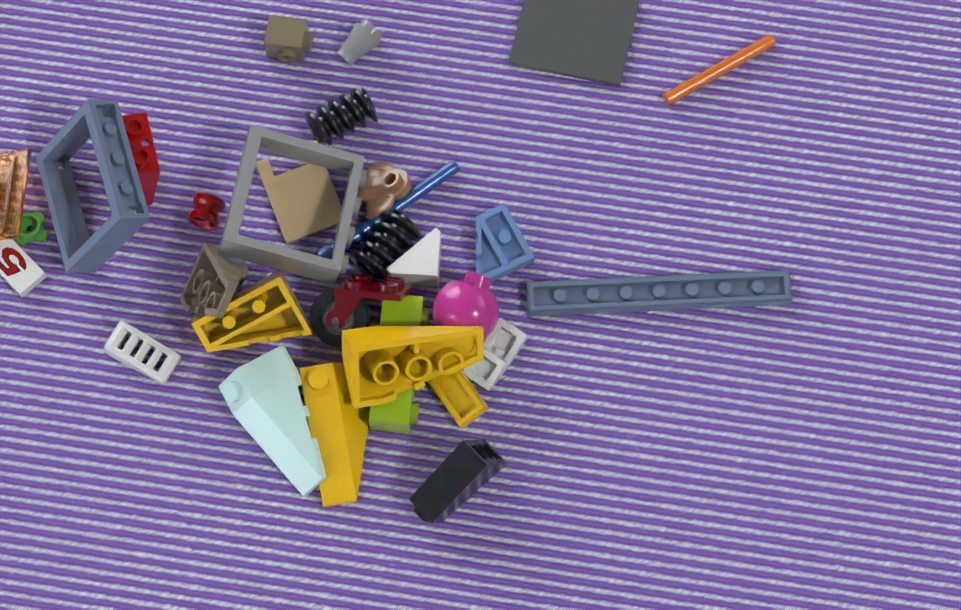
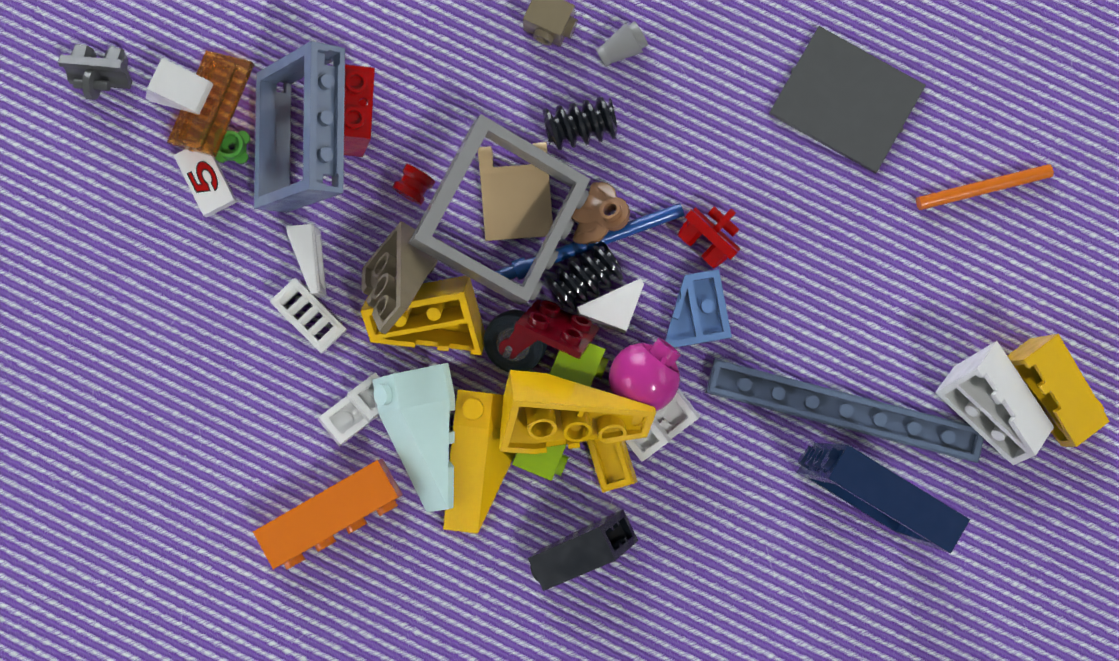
camera: 15 degrees right, 15 degrees up
(124, 293) = (308, 251): none -> white slope
(208, 426) = (351, 412): none -> white slope
(212, 520) = (327, 514): none -> orange brick
(473, 174) = (722, 245): none -> red hips
(703, 318) = (882, 495): none -> dark blue window
(787, 240) = (997, 403): none -> white wedge
(835, 215) = (1059, 389): none -> yellow wedge

